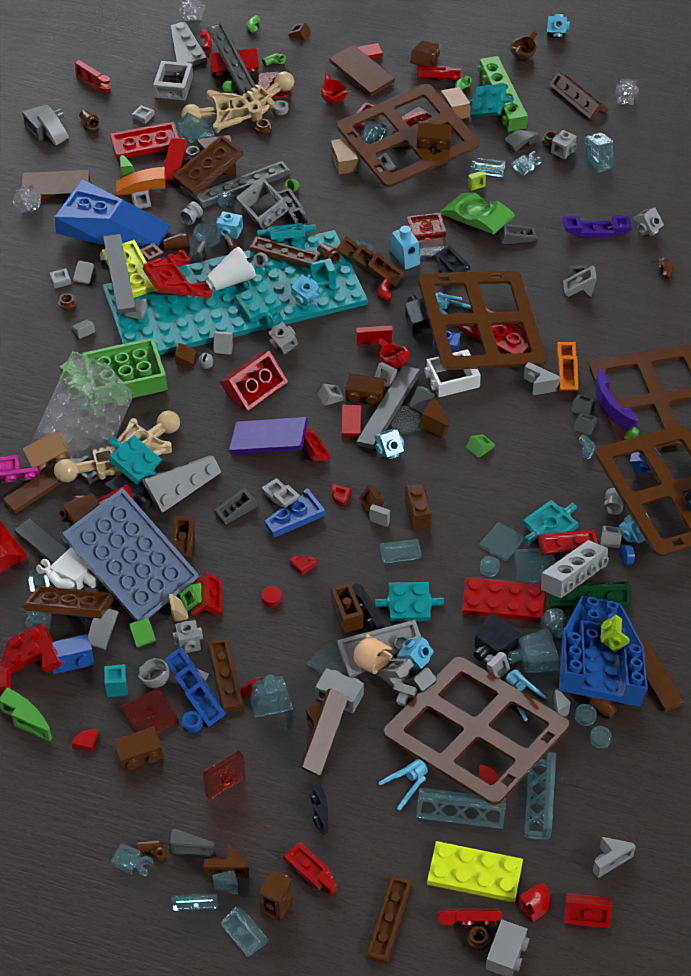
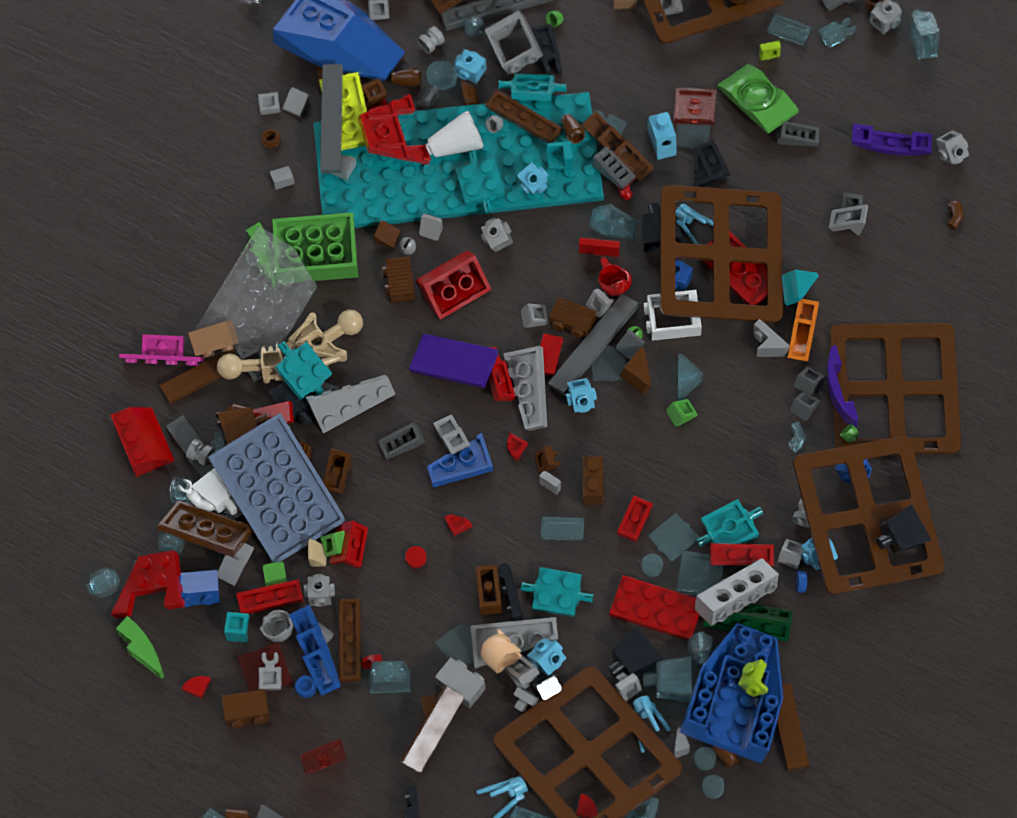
camera: 15 degrees right, 15 degrees up
(51, 542) = (199, 452): none -> light grey wheel
(142, 650) = (270, 597): none -> red plate
(156, 713) = (270, 675): none -> light grey plate
(205, 384) = (399, 278): none -> reddish brown brick
(340, 443) = (528, 376): none -> light grey wing
(369, 275) = (604, 159): none -> dark grey slope
(379, 313) = (613, 222): none -> clear light blue slope
(463, 531) = (635, 518): none -> red plate
(478, 415) = (688, 377): none -> clear light blue slope
(552, 332) = (796, 285): none -> teal slope

